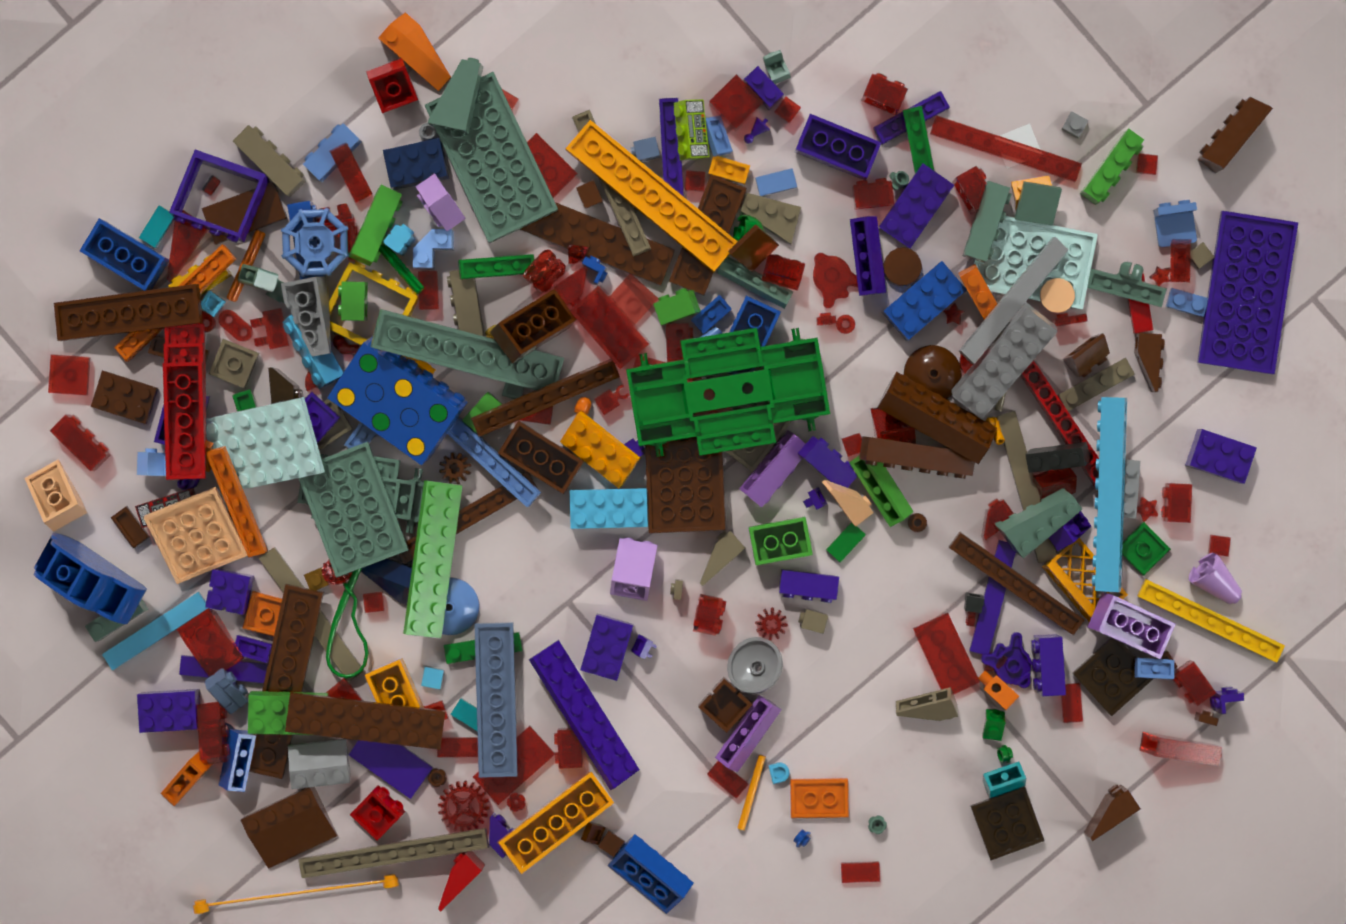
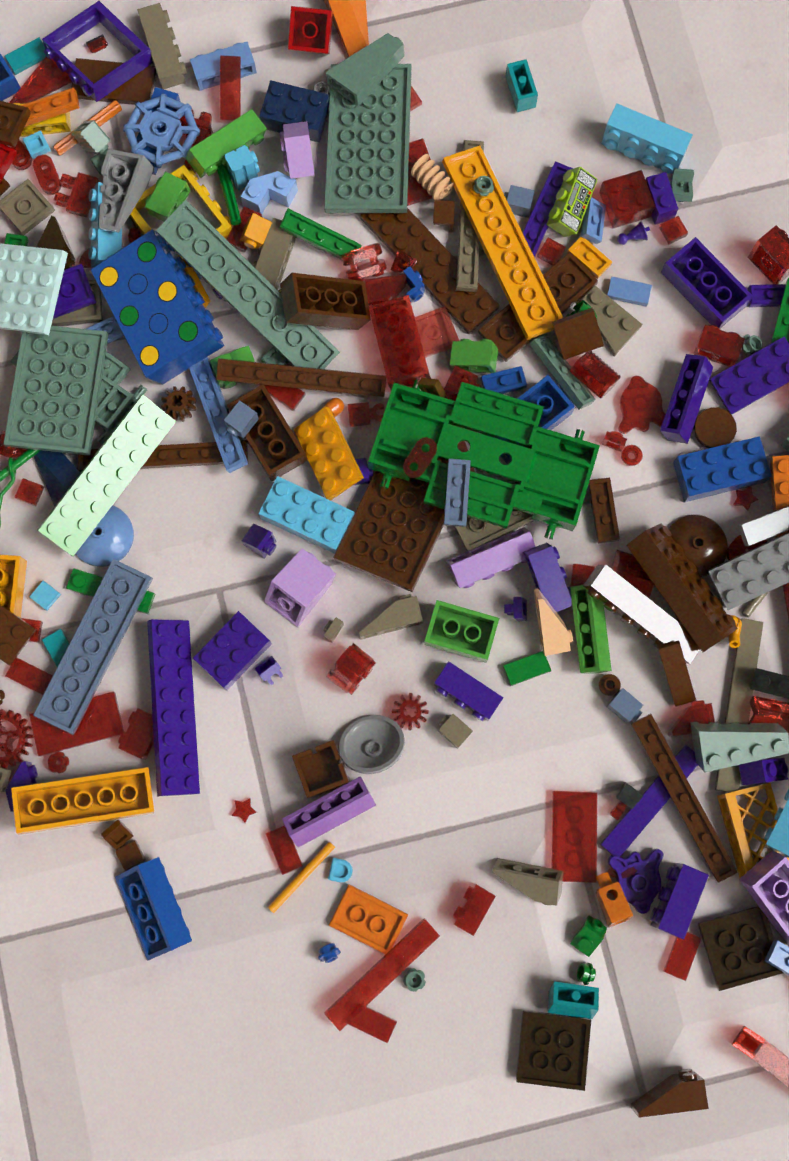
camera: 25 degrees right, 10 degrees down
(441, 291) = (255, 231): none -> light orange brick
(517, 462) = (240, 420): none -> sand blue brick
(563, 169) = (431, 178): none -> light nougat piece
(582, 548) = (260, 541): none -> dark purple slope
(597, 44) = (521, 85): none -> teal brick
(612, 153) = (483, 181): none -> sand green plate
(657, 354) = (431, 386): none -> pearl gold plate
(679, 424) = (422, 458): none -> clear red plate
(680, 764) = (243, 810): none -> clear red piece
(723, 437) = (457, 492): none -> sand blue plate
(727, 43) = (645, 139): none -> medium azure brick
(845, 382) = (604, 510): none -> reddish brown plate
(850, 833) = (381, 974): none -> clear red tile
(896, 750) = (474, 909): none -> clear red brick
(938, 534) = (625, 706): none -> sand blue brick
(965, 489) = (677, 673): none -> reddish brown tile

